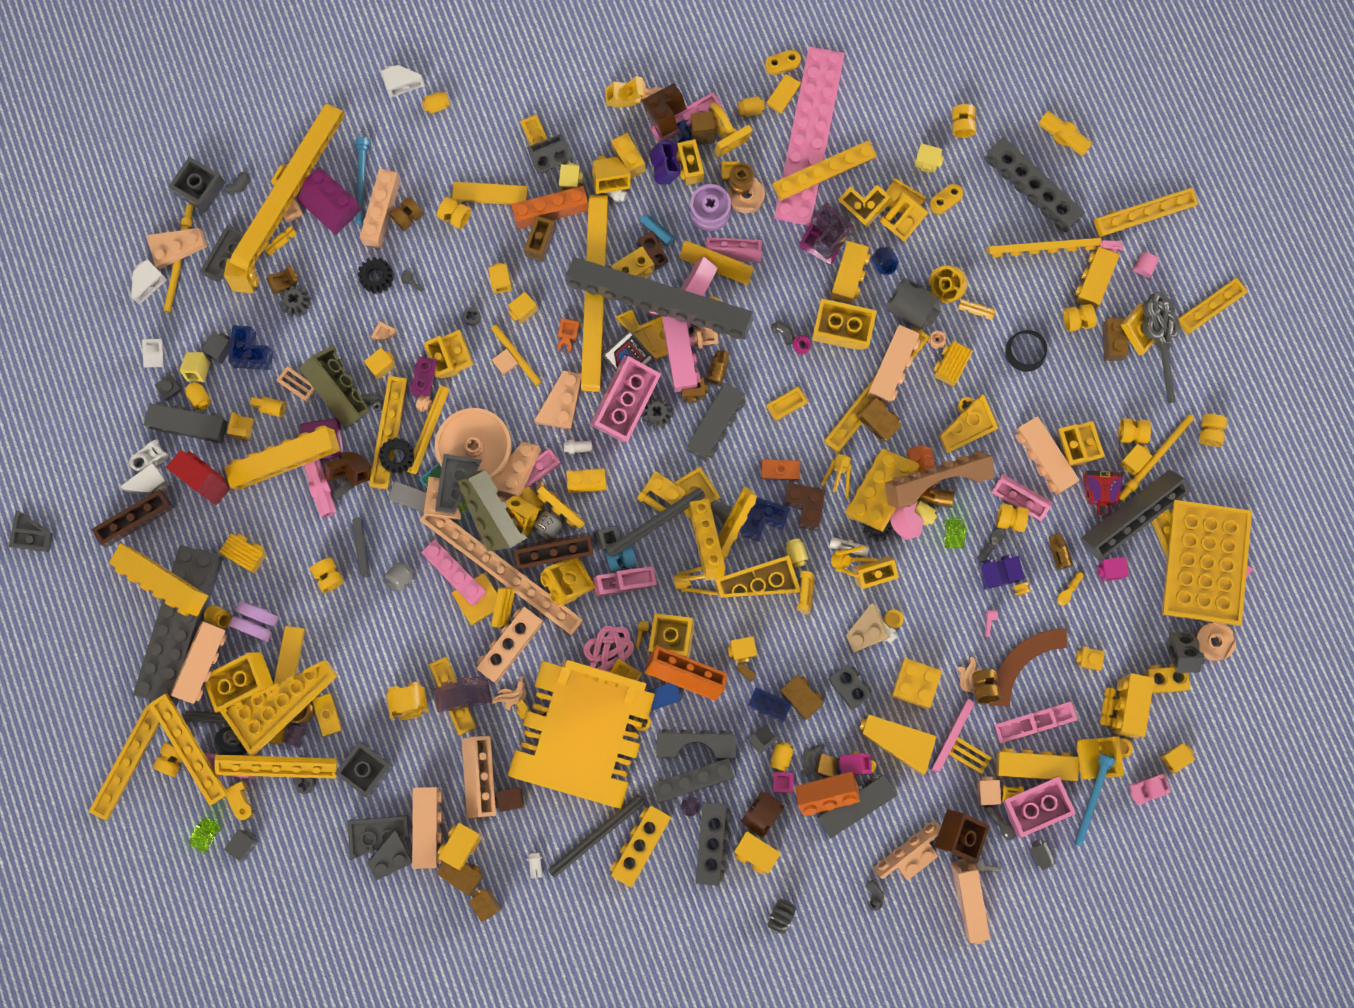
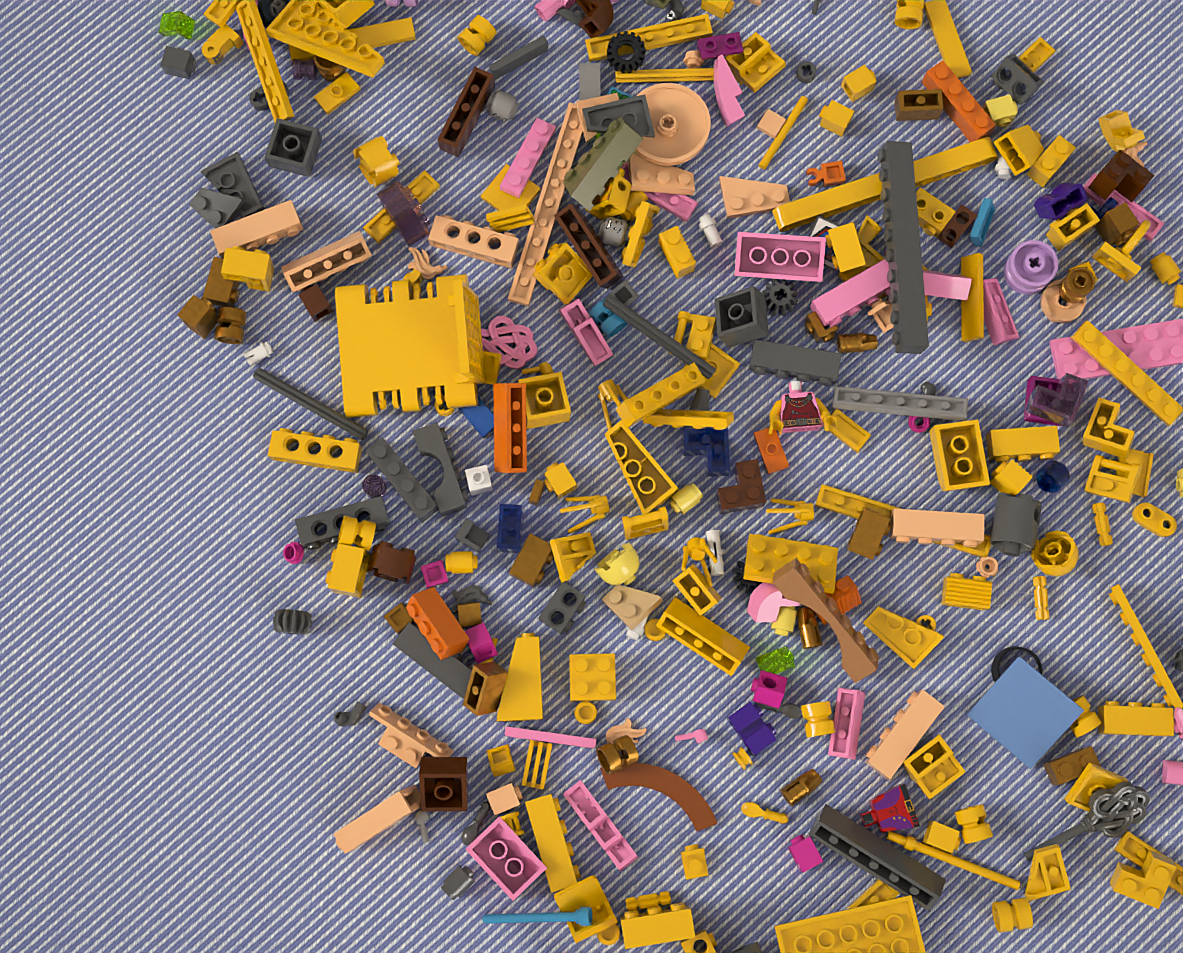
camera: 70 degrees right, 0 degrees up
(393, 609) = (466, 112): none -> reddish brown brick
(465, 387) = (726, 92): none -> bright pink slope
(495, 879) = (231, 325): none -> pearl gold wheel
(640, 342) = (846, 247): none -> yellow brick
(664, 449) = (741, 316): none -> dark grey brick
(718, 716) = (478, 480): none -> white brick
(721, 899) = (293, 552): none -> dark pink plate
(730, 832) = (356, 532): none -> yellow wheel
(759, 434) = (799, 412): none -> torso
(775, 626) = (597, 505): none -> yellow plant
(782, 353) = (900, 403): none -> light grey tile
(808, 826) = (398, 618): none -> pearl gold tile
(809, 662) = (572, 553): none -> yellow wing
(832, 627) = (619, 566): none -> light yellow cylinder
(876, 293) = (1009, 478): none -> yellow brick
(896, 773) = (485, 688): none -> pearl gold brick
(914, 582) = (703, 636): none -> yellow brick
(935, 239) = (1102, 524): none -> yellow axle
(941, 700) = (585, 712): none -> yellow tile
(955, 784) = (500, 760): none -> yellow slope
(975, 546) = (769, 689): none -> dark pink brick
(1062, 357) = (1025, 712): none -> medium blue piece
(1190, 391) = (1046, 873): none -> yellow wing
(1223, 321) = (1149, 883): none -> yellow brick

